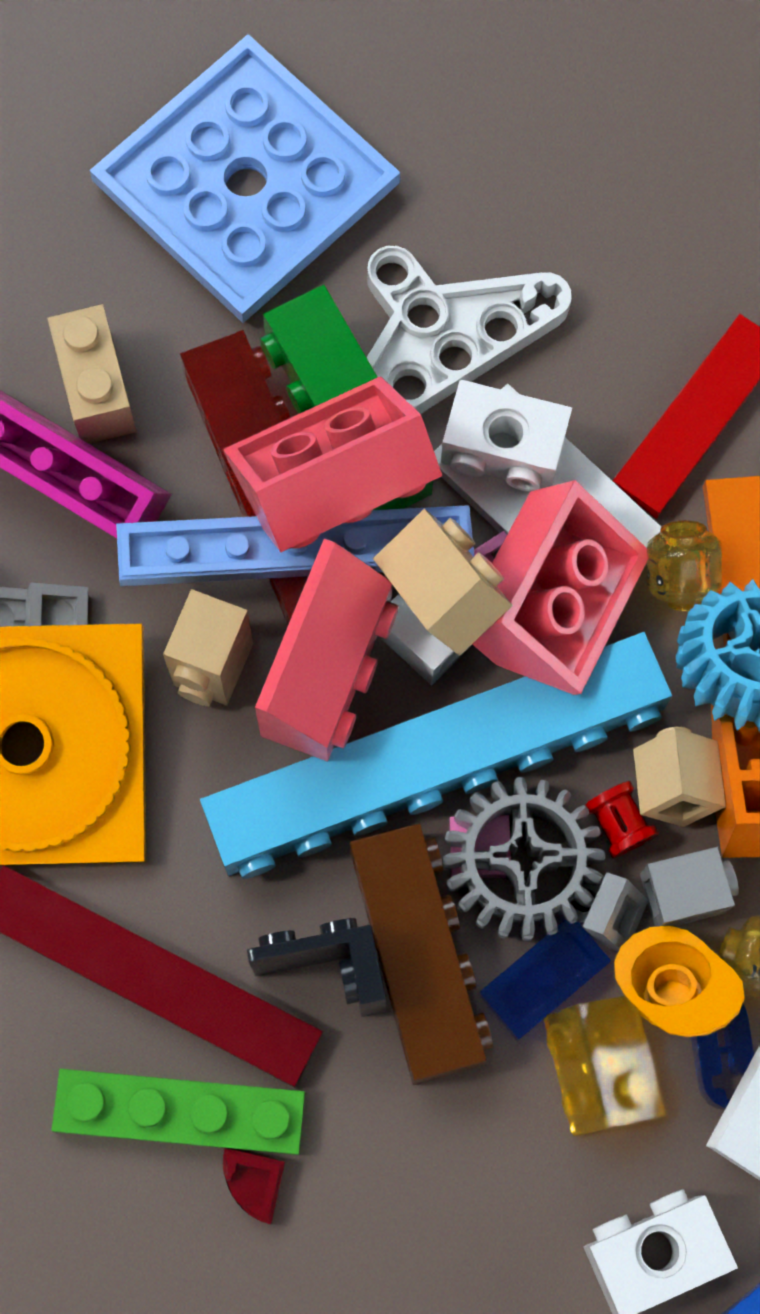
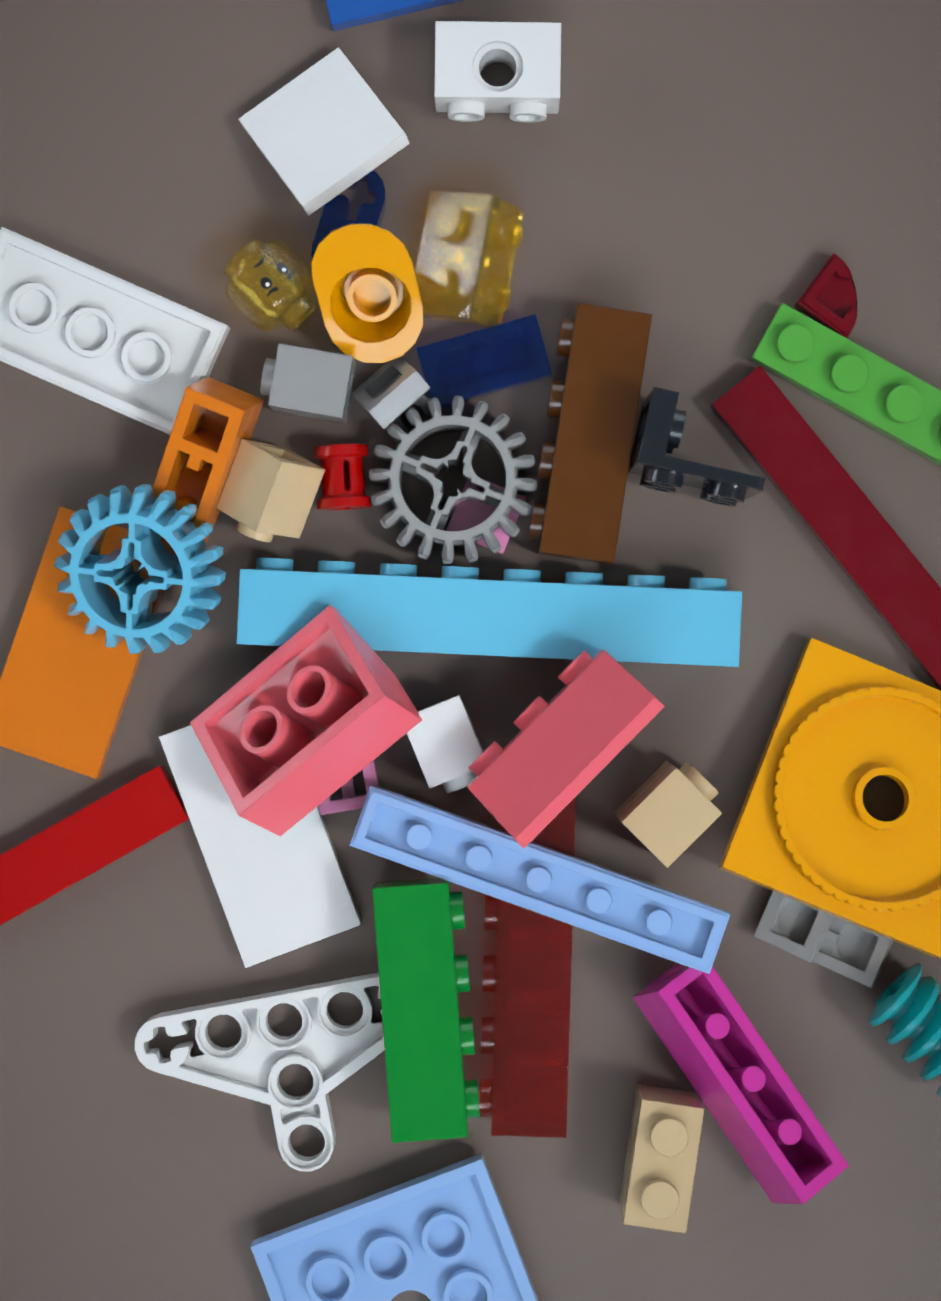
camera: 150 degrees left, 15 degrees up
(334, 463) = (471, 939): coral slope -> none
(442, 581) = (419, 765): tan brick -> none
(487, 411) = (289, 940): white brick -> none
(684, 564) = (162, 697): clear yellow head -> none

